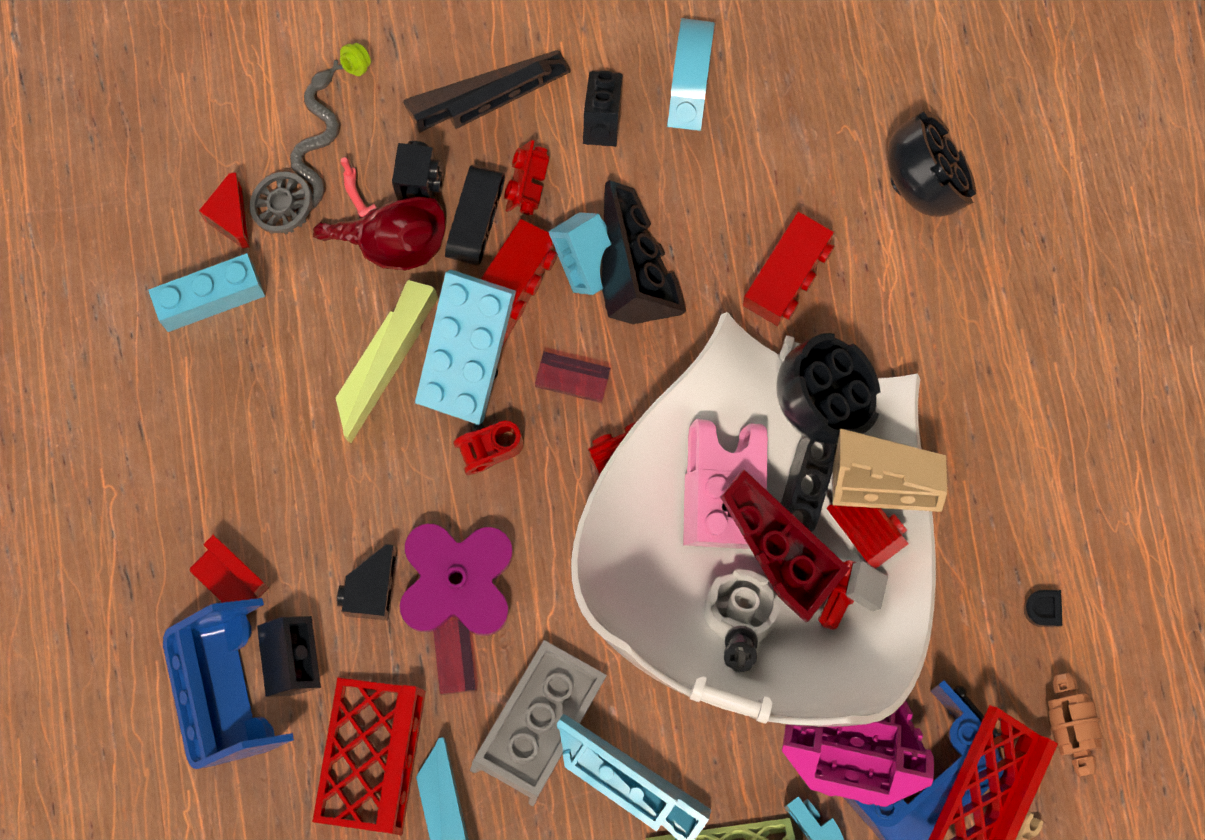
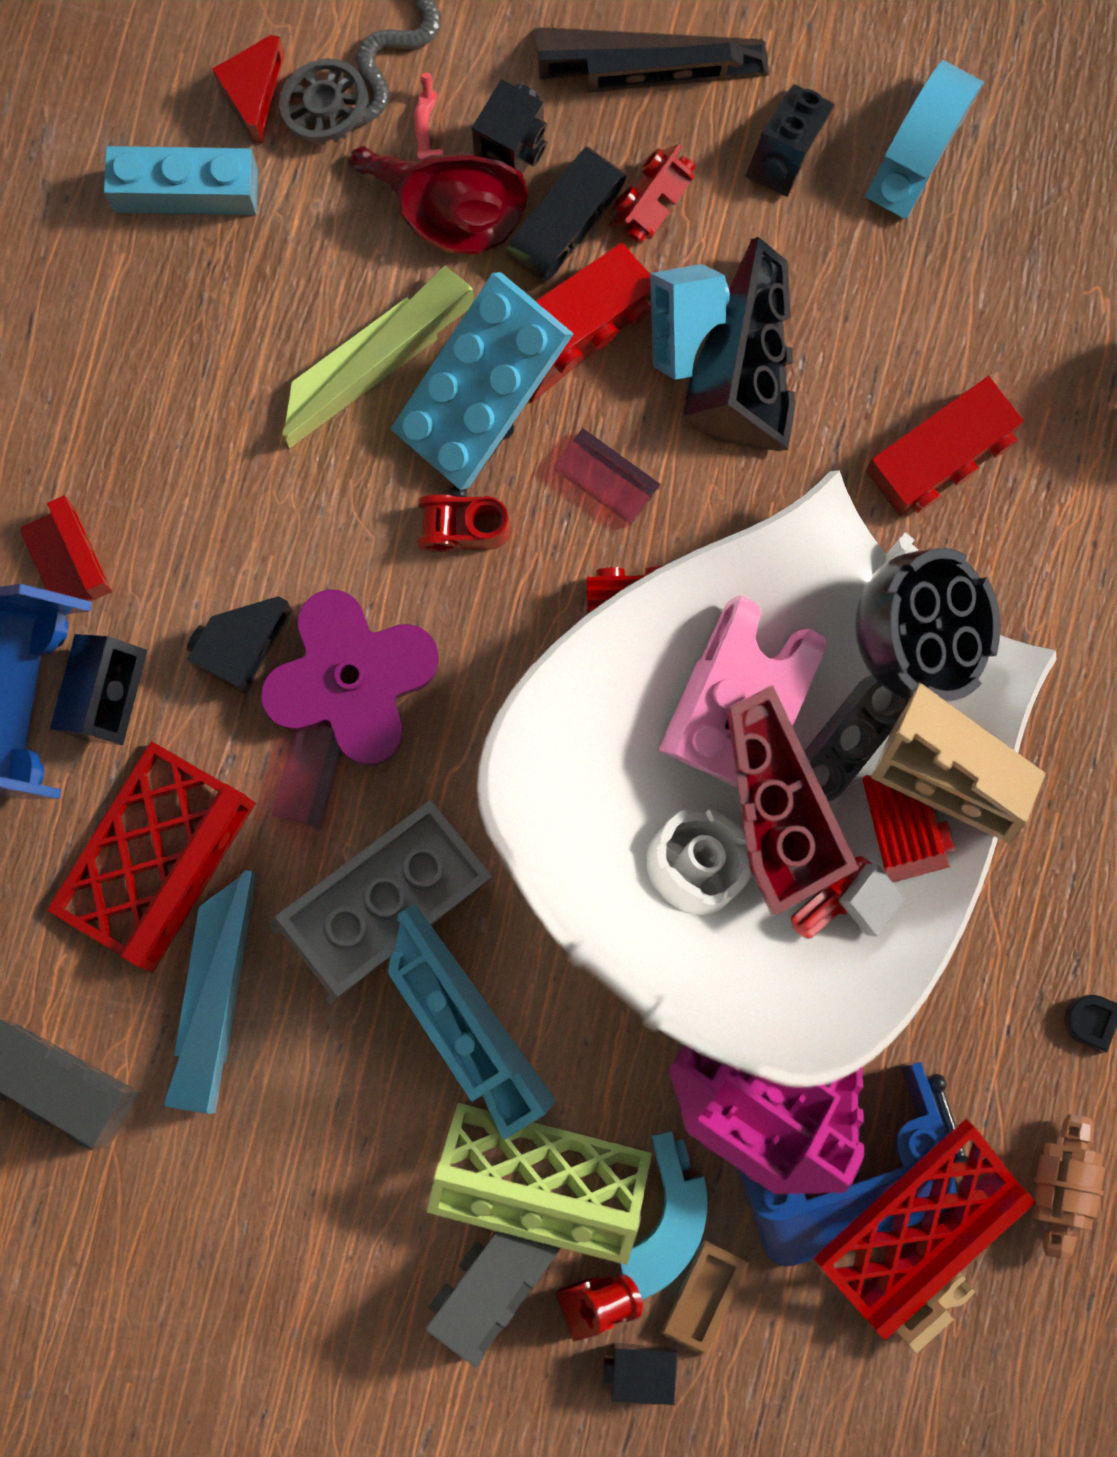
camera: 20 degrees right, 5 degrees up
(737, 659) = (674, 900): black bush -> none

